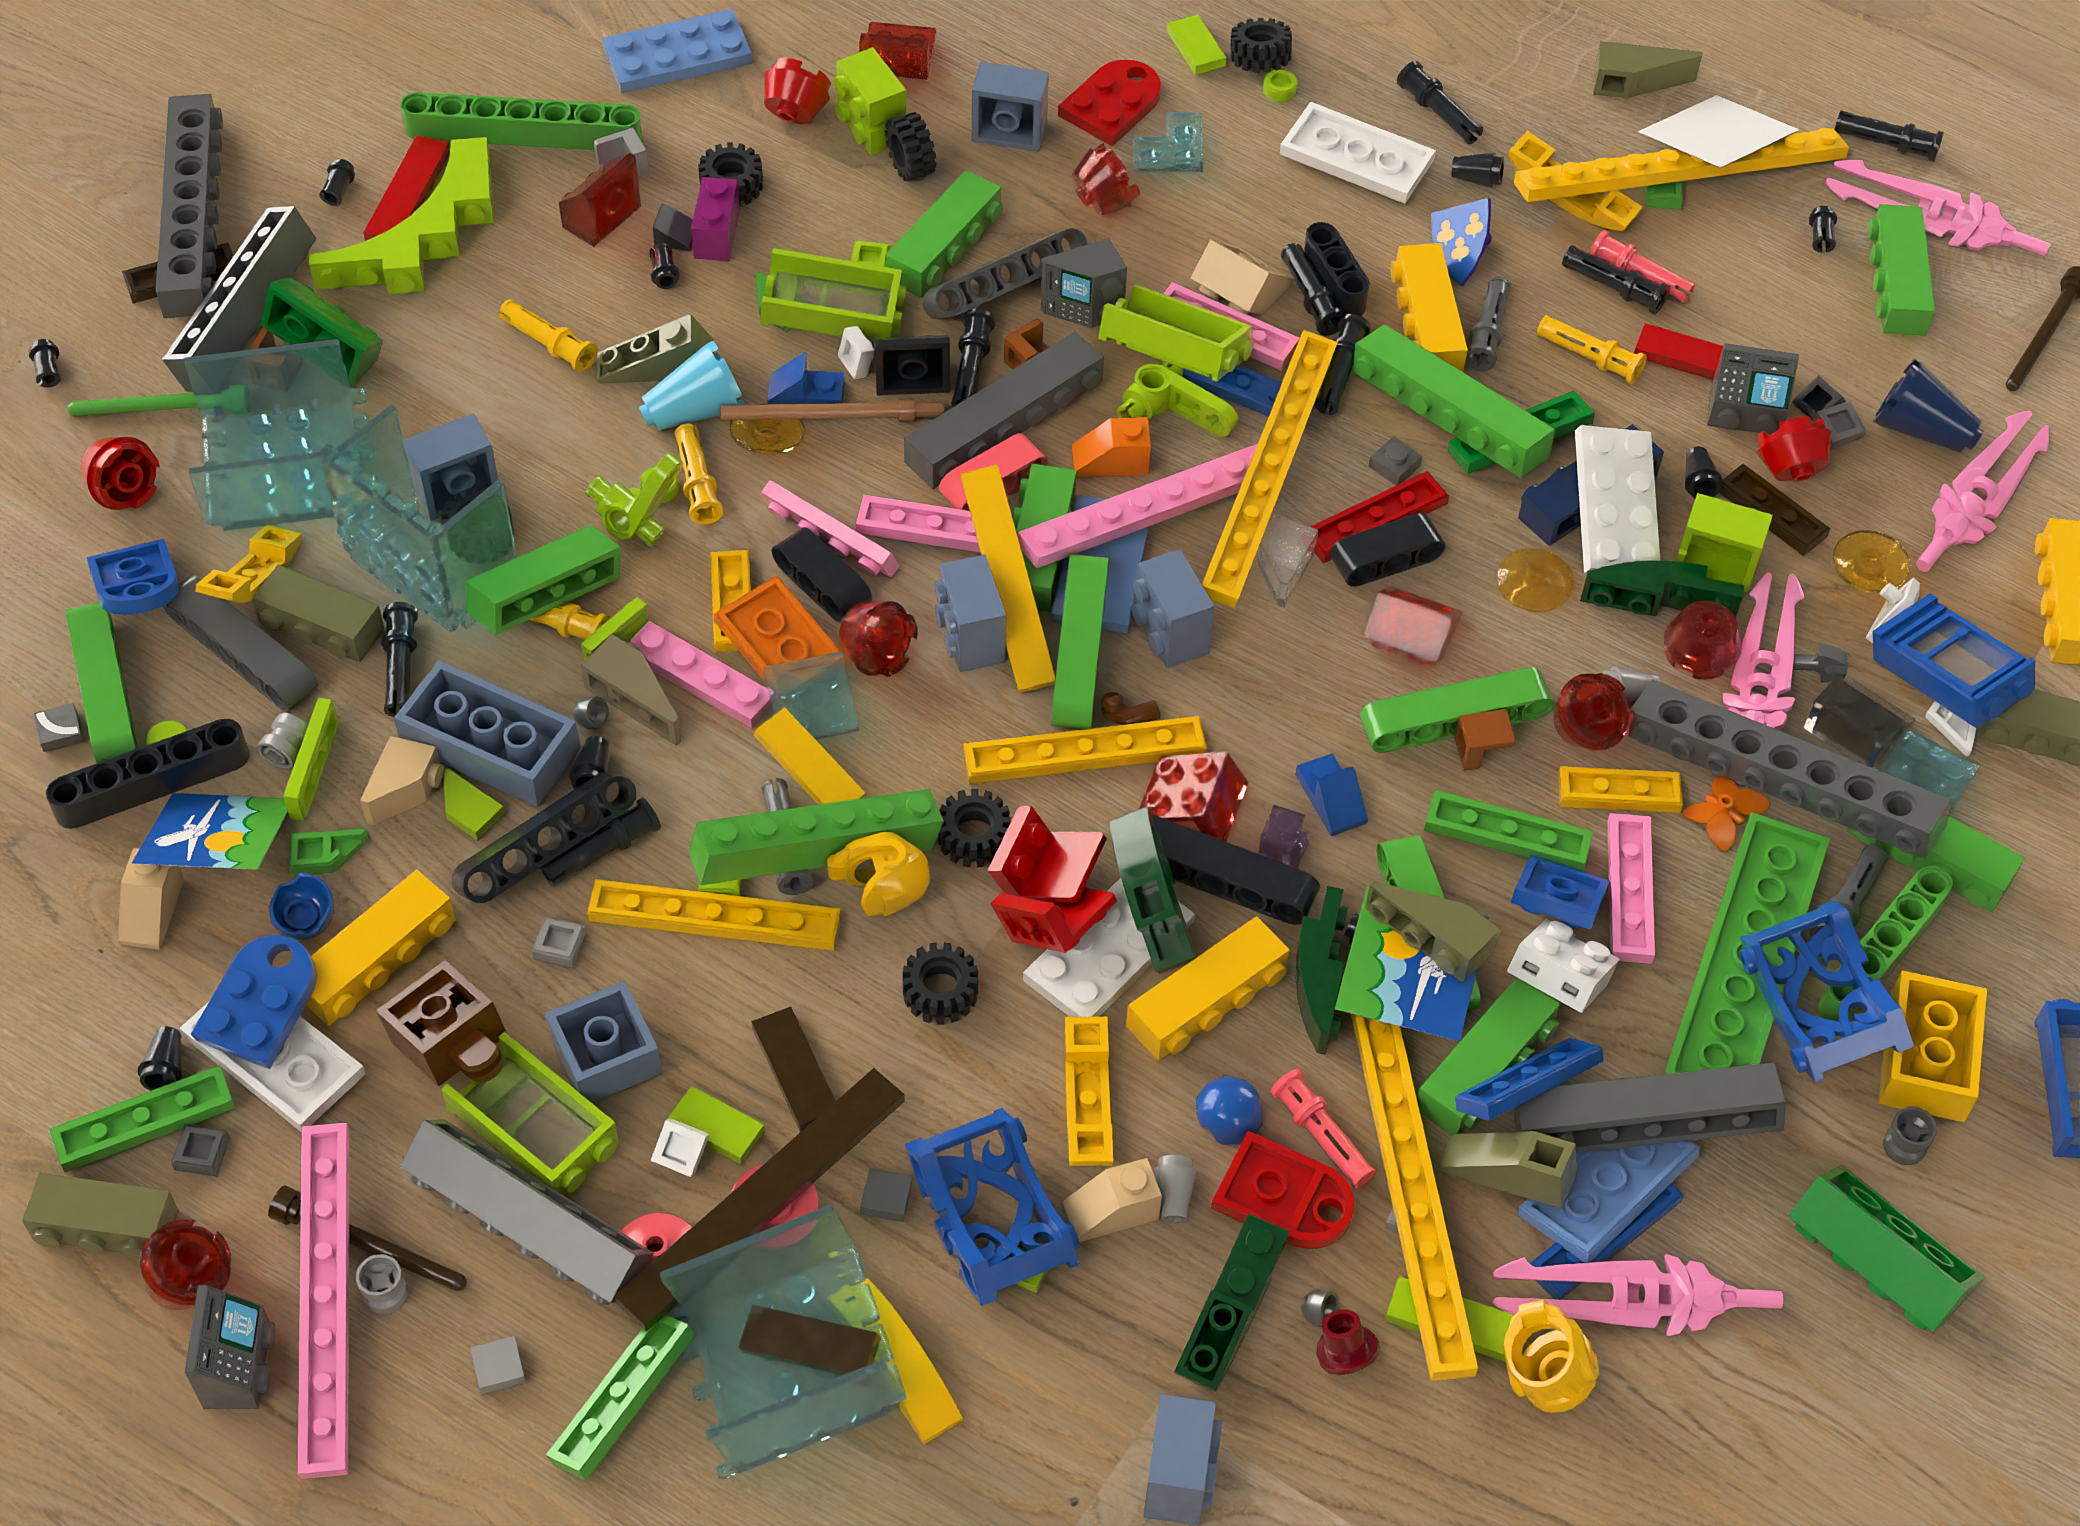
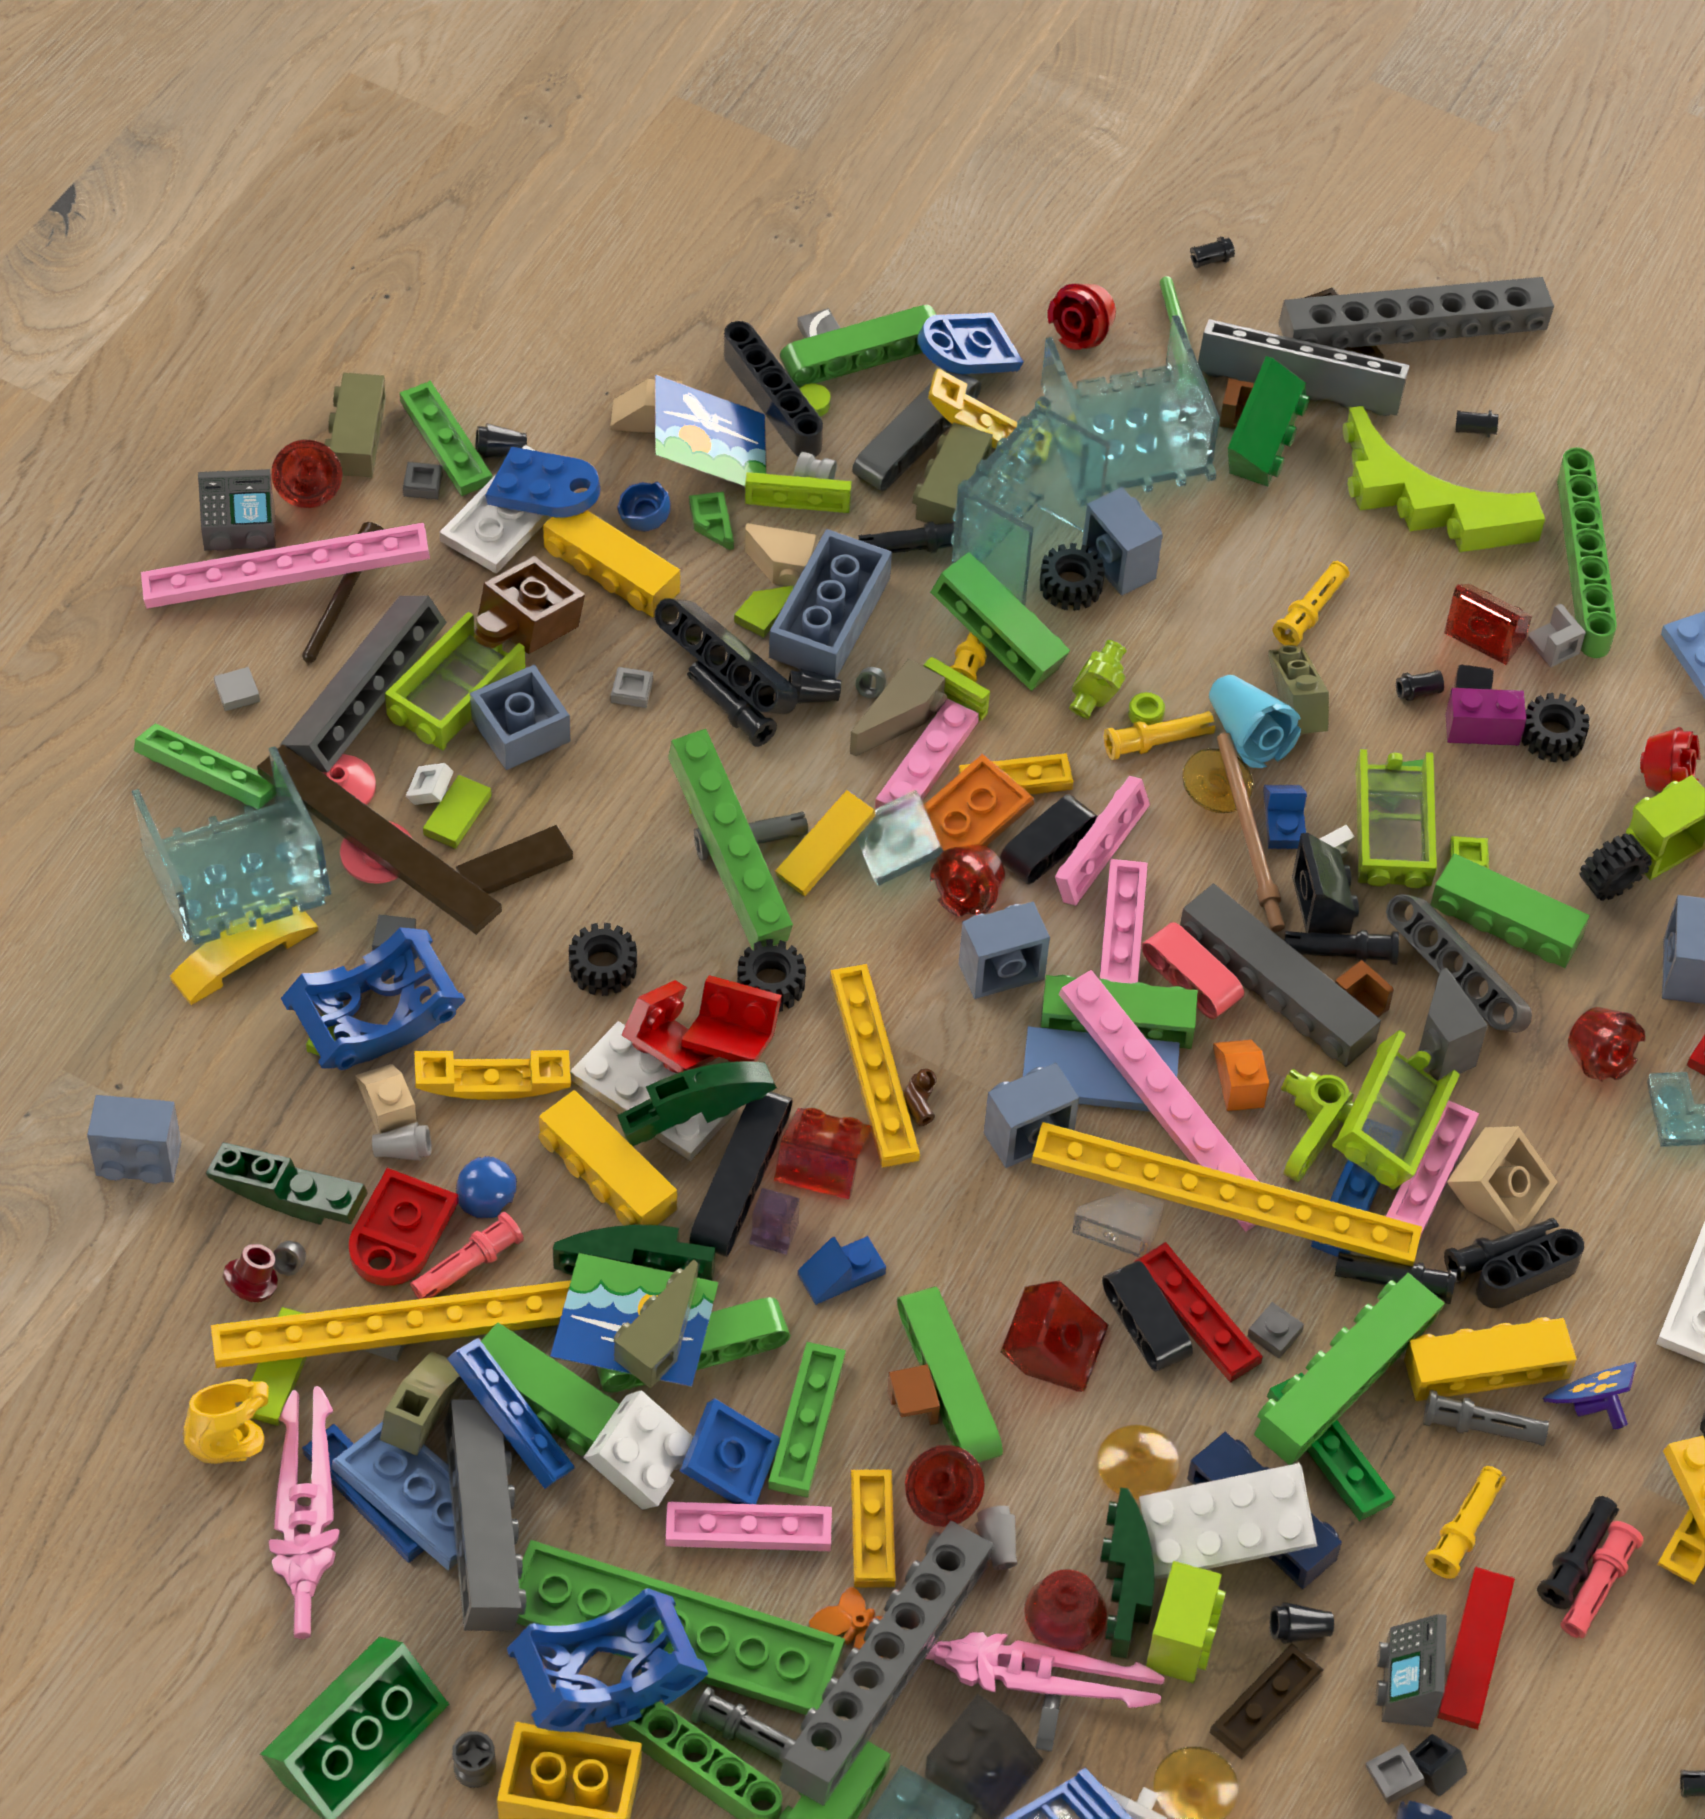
camera: 85 degrees right, 0 degrees up
(376, 1275) = (300, 603): light grey wheel -> none
(409, 184) = (1484, 475): red tile -> none
(714, 914) = (665, 800): yellow tile -> none
(808, 1341) = (239, 875): dark brown tile -> none
(894, 881) = (703, 905): yellow helmet -> none
(1000, 544) = (1044, 972): yellow tile -> none
(1080, 642) = (989, 1044): bright green beam -> none
(1796, 449) = (1335, 1711): red cone -> none

